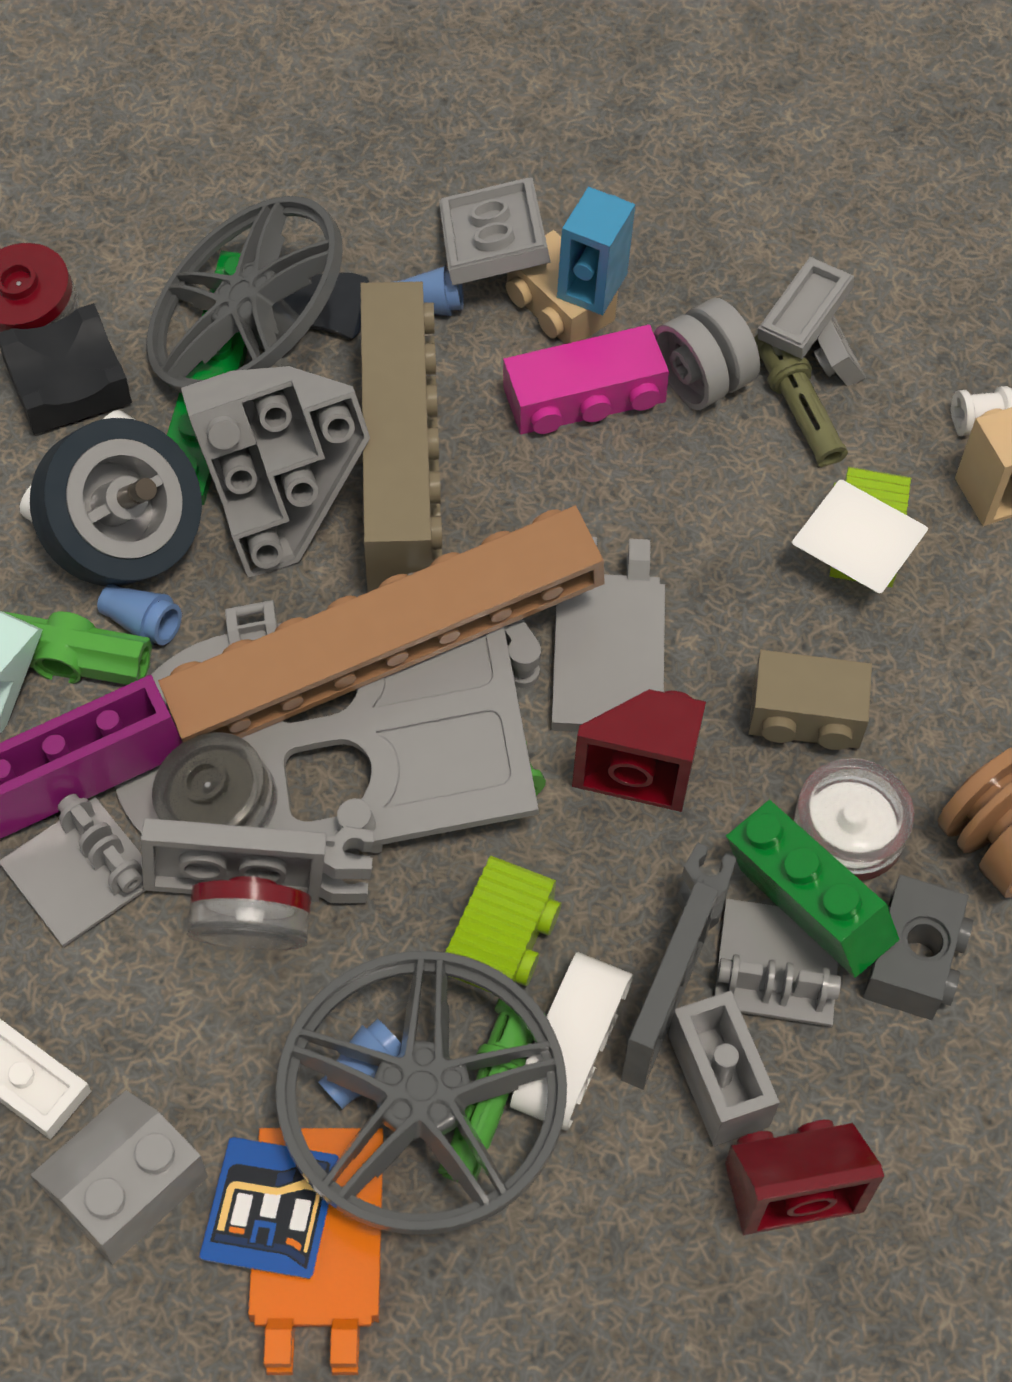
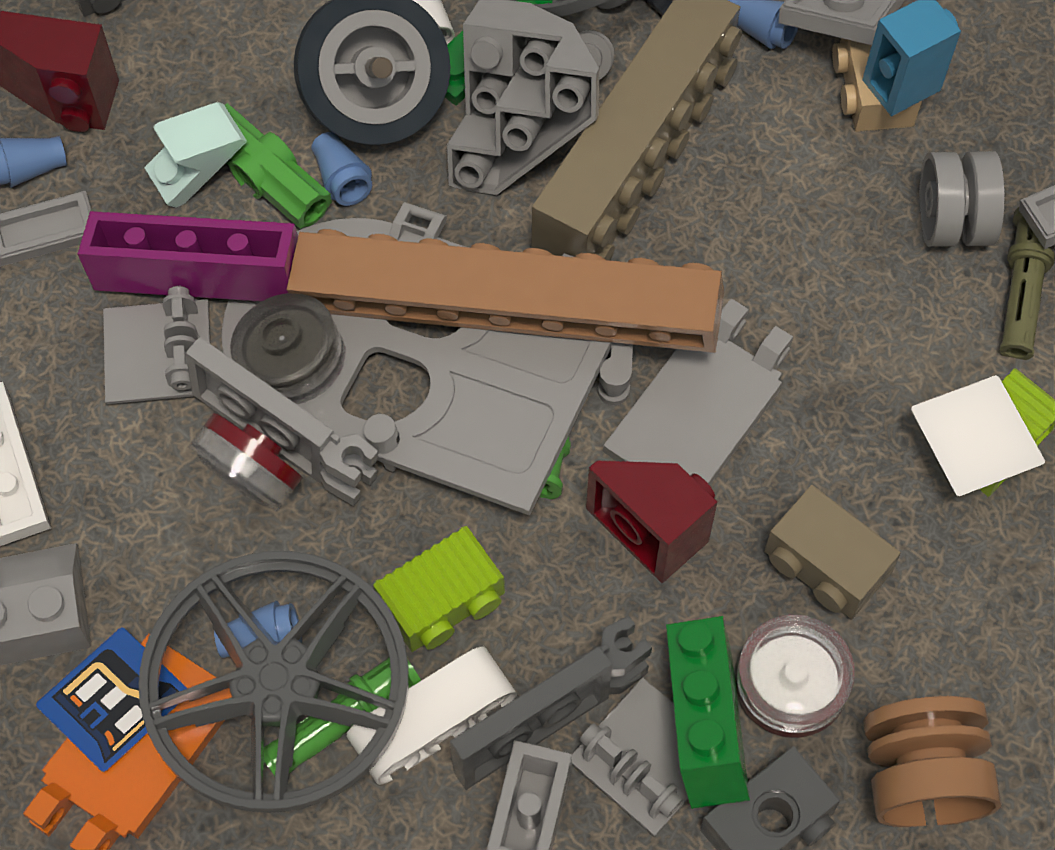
camera: 35 degrees right, 5 degrees up
(585, 380) = (841, 166): dark pink brick -> none

